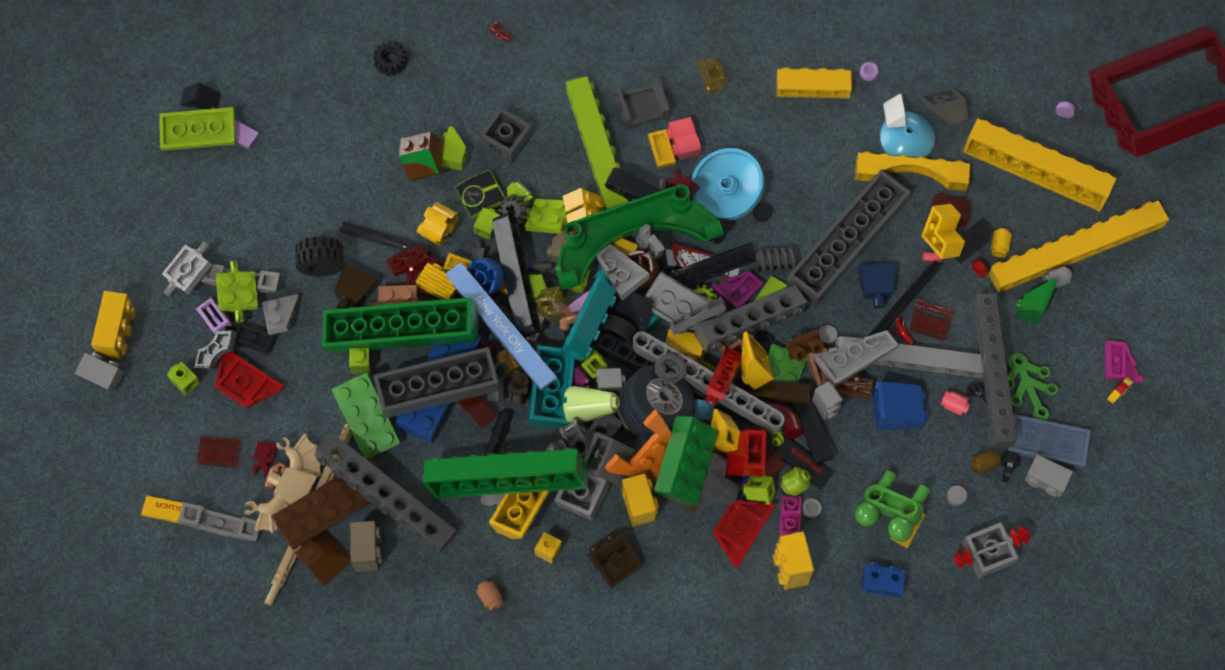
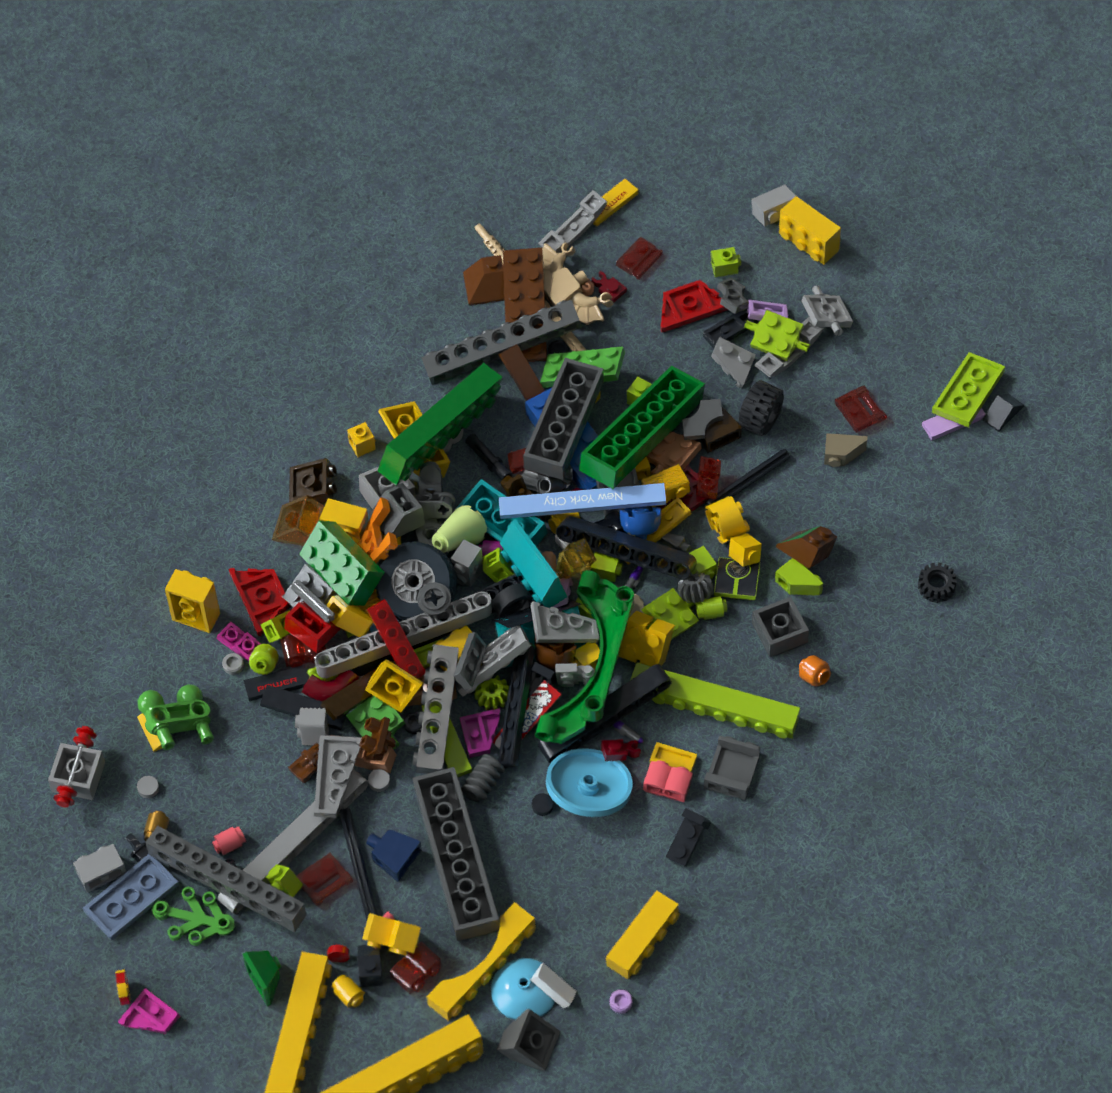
camera: 130 degrees right, 10 degrees down
(269, 199) = (855, 412): none -> clear red plate
(314, 186) = (843, 448): none -> dark tan slope
(364, 546) = (467, 306): dark tan piece -> none
(365, 293) = (708, 413): none -> dark grey tile
(404, 457) = (521, 372): none -> reddish brown tile
(455, 196) = (745, 549): none -> yellow brick
(490, 595) = (356, 377): nougat brick -> none
(501, 34) = (902, 689): clear red arm -> none
(524, 95) = (814, 671): none -> orange head
(657, 544) = (297, 520): none -> clear orange slope
(711, 74) = (720, 845): clear yellow slope -> none
(716, 97) = (687, 837): none -> black bracket
(734, 459) = (313, 601): none -> dark grey axle
(883, 580) = (124, 673): blue brick -> none
(899, 406) = (262, 785): blue slope -> none
(902, 332) = (330, 846): red bar -> none
(959, 338) = (284, 880): none -> lime brick
(1062, 275) = (274, 1017): light grey brick -> none

